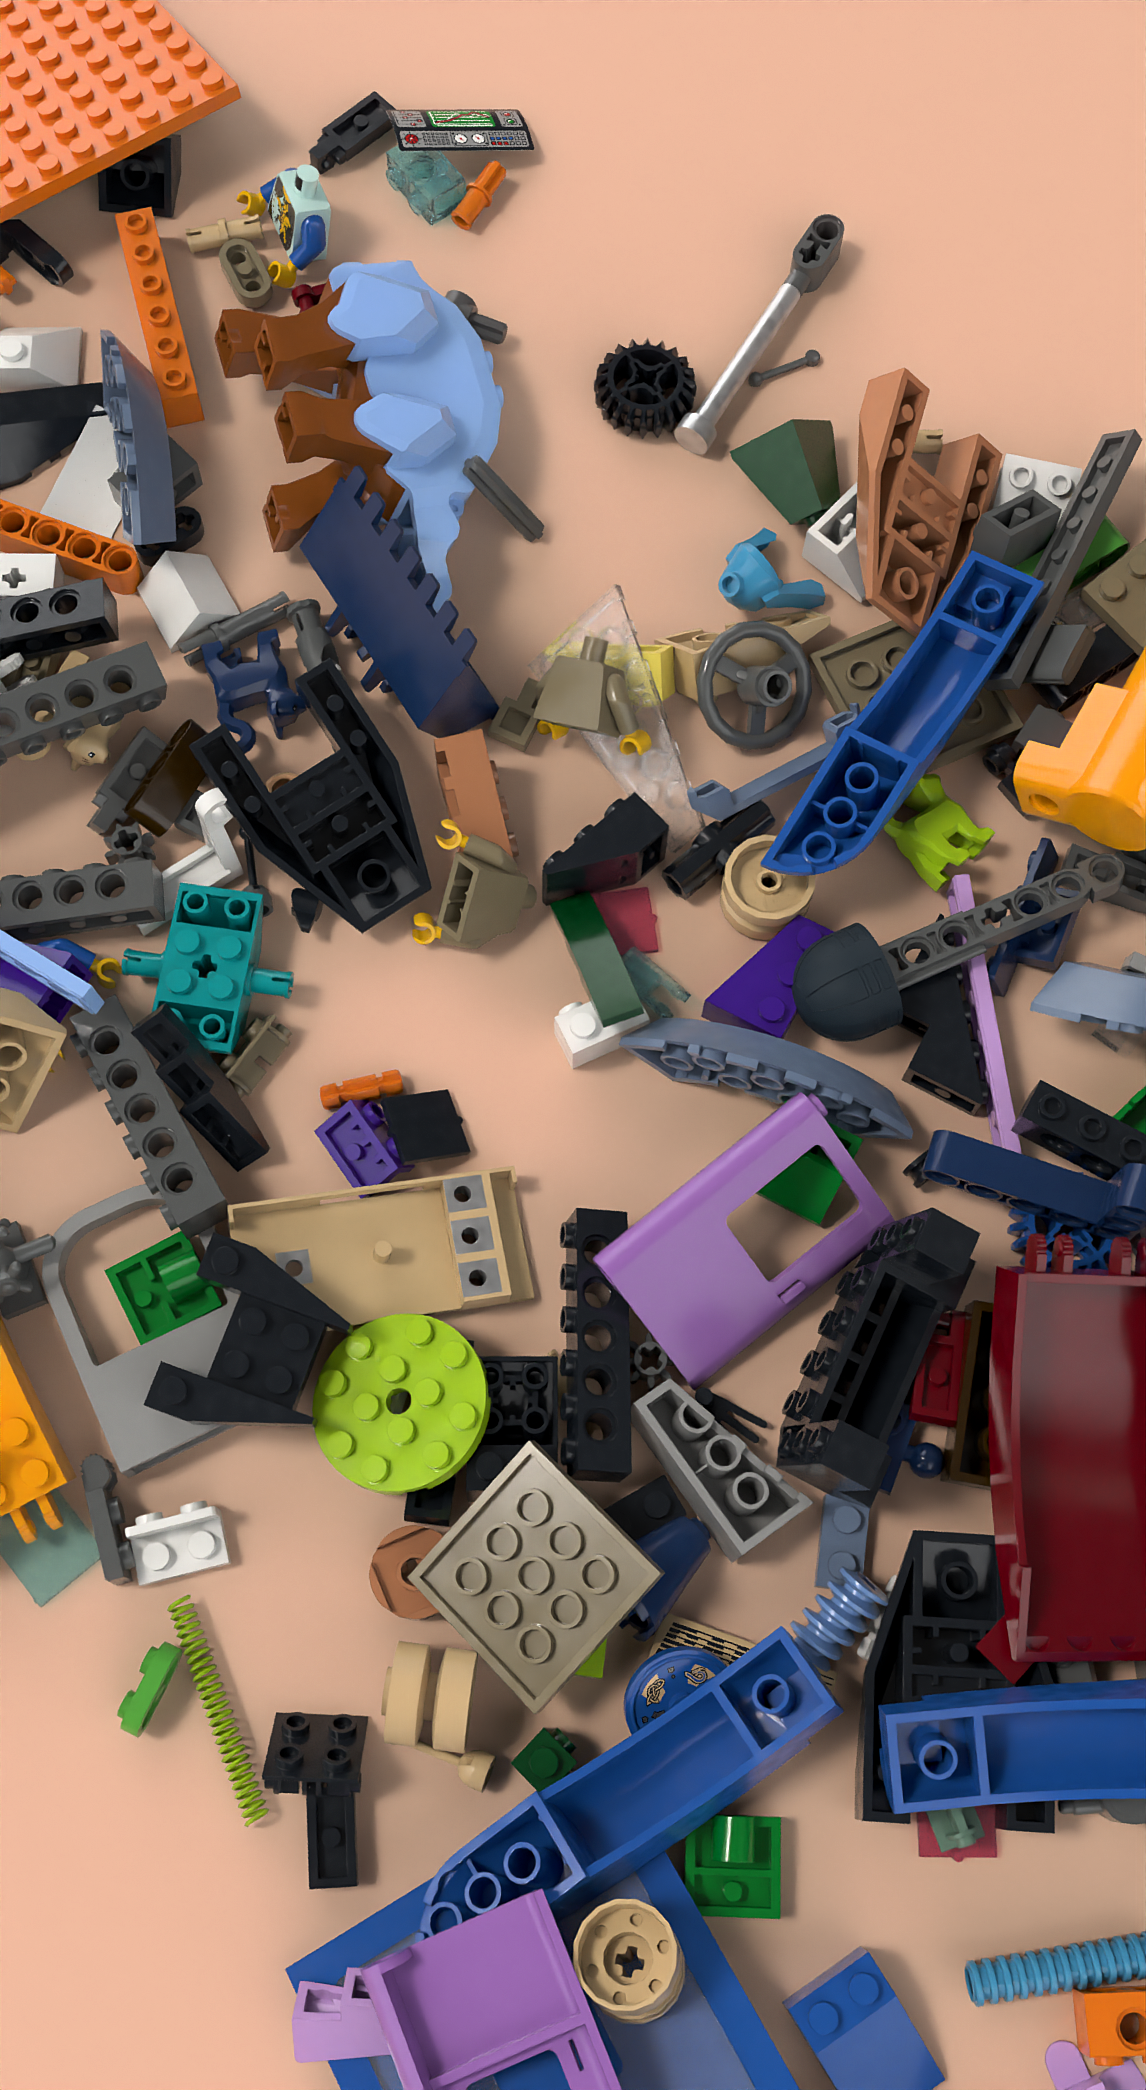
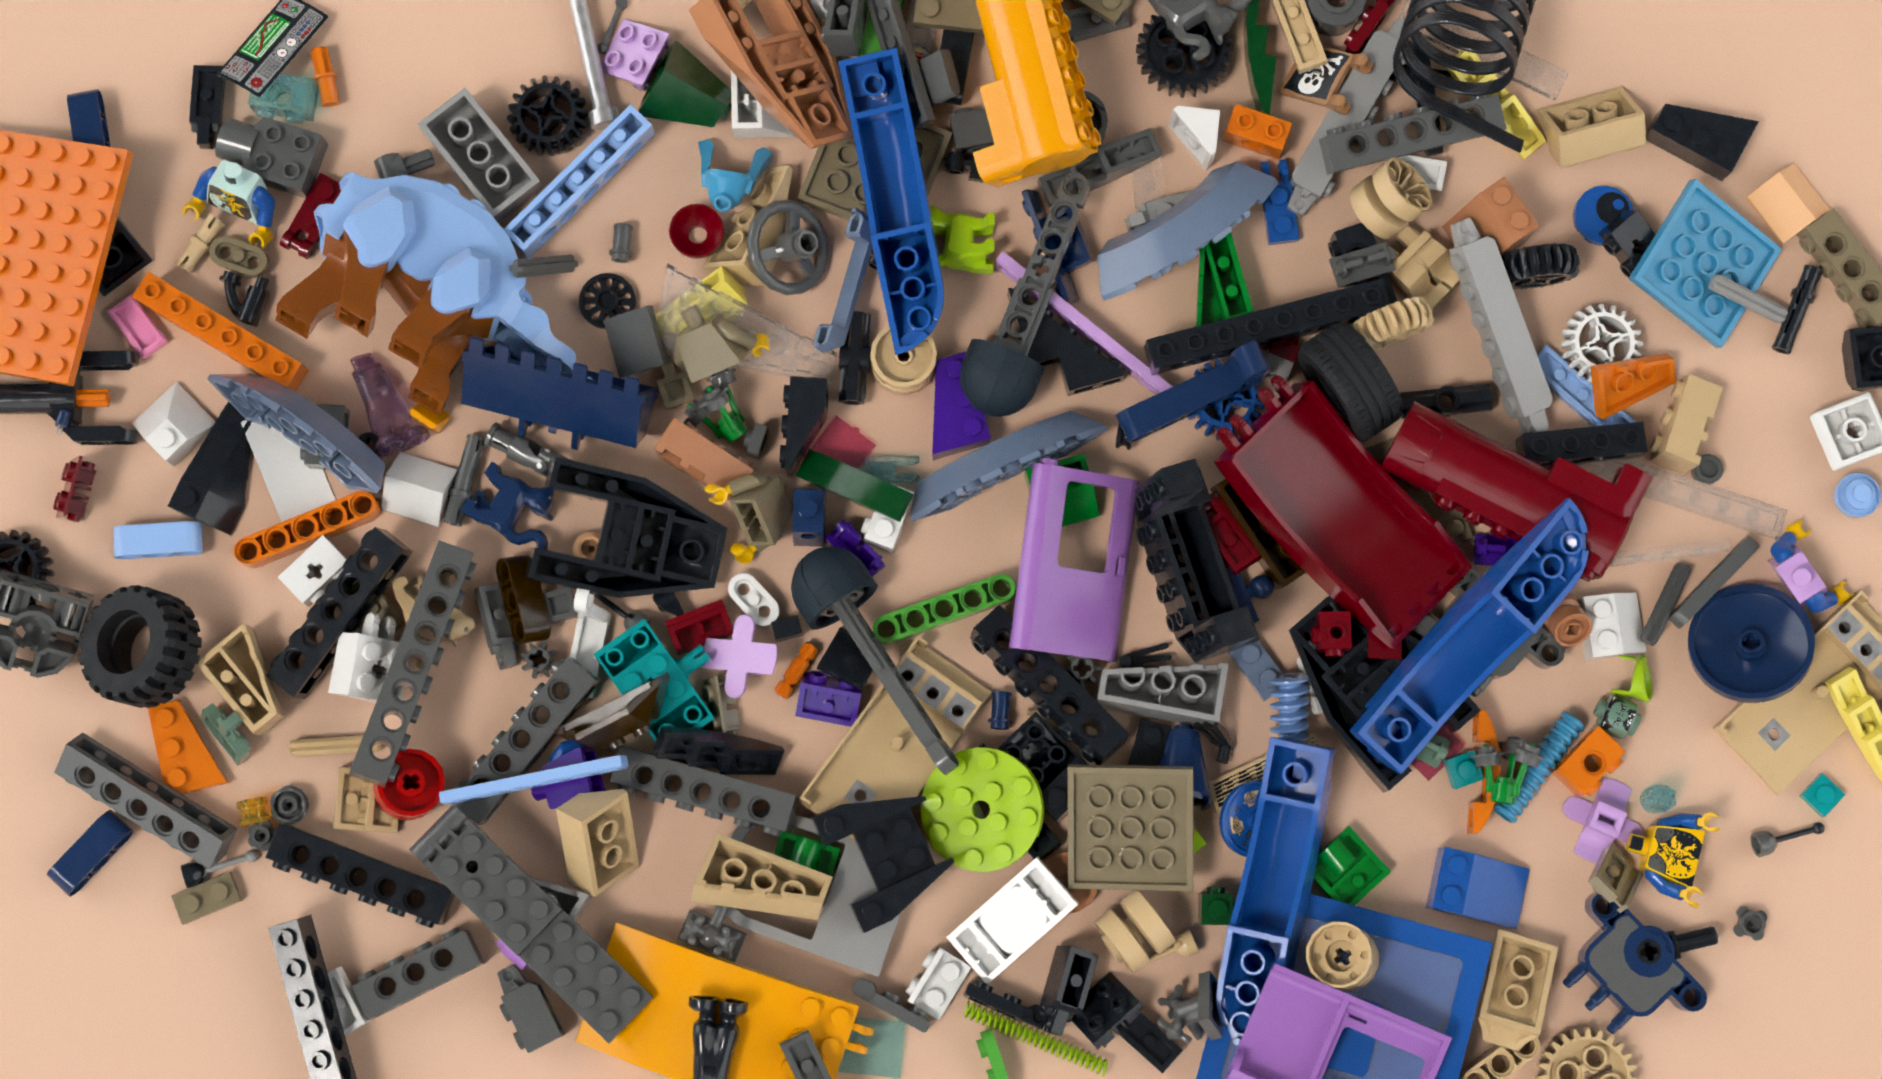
camera: 45 degrees left, 10 degrees up
(98, 257) = (137, 326): none -> bright pink tile
(100, 1249) = (758, 881): none -> tan wedge
(139, 959) = (619, 717): none -> dark brown wedge
(206, 322) = (254, 301): none -> black plant
(225, 1643) = (1006, 1005): none -> black hinge
(233, 503) = (385, 408): none -> piece
(245, 59) = (88, 118): none -> dark blue beam
(262, 549) = (429, 419): none -> light orange slope
(301, 1684) = (1067, 986): none -> black hinge
(313, 957) = (698, 625): none -> dark red hinge
(317, 1554) = (1012, 920): none -> white slope
(318, 1020) = (740, 656): none -> lavender piece
(367, 210) = (277, 151): none -> dark grey brick
(389, 985) = (754, 600): none -> white plate
(392, 1039) = (786, 628): none -> black piece
(409, 1855) = (1196, 1013): none -> dark grey piece
(473, 1040) = (831, 588): none -> piece
(516, 760) = (714, 398): none -> plant
(522, 642) = (635, 341): none -> dark grey slope
(524, 1324) = (1000, 710): none -> dark blue pin
(525, 947) = (809, 517): none -> dark blue torso
(534, 593) = (606, 299): none -> black wheel
(535, 1027) = (848, 538): none -> dark purple hinge
(545, 837) = (756, 440): none -> dark grey plate
(546, 366) = (480, 155): none -> light grey brick
(553, 1150) = (955, 599): none -> bright green beam
(593, 558) = (621, 243): none -> dark grey pin
(616, 462) = (579, 181): none -> light blue brick
(684, 586) = (692, 217): none -> dark red piece
(727, 1574) = (1219, 737): none -> black piece
(781, 401) = (635, 53): none -> lavender hinge
(960, 1578) = (1332, 633): none -> dark red brick
(971, 1883) = (1462, 769): none -> teal plate
(1034, 1866) = (1480, 811): none -> orange slope
(1052, 1919) = (1515, 750): none -> plant

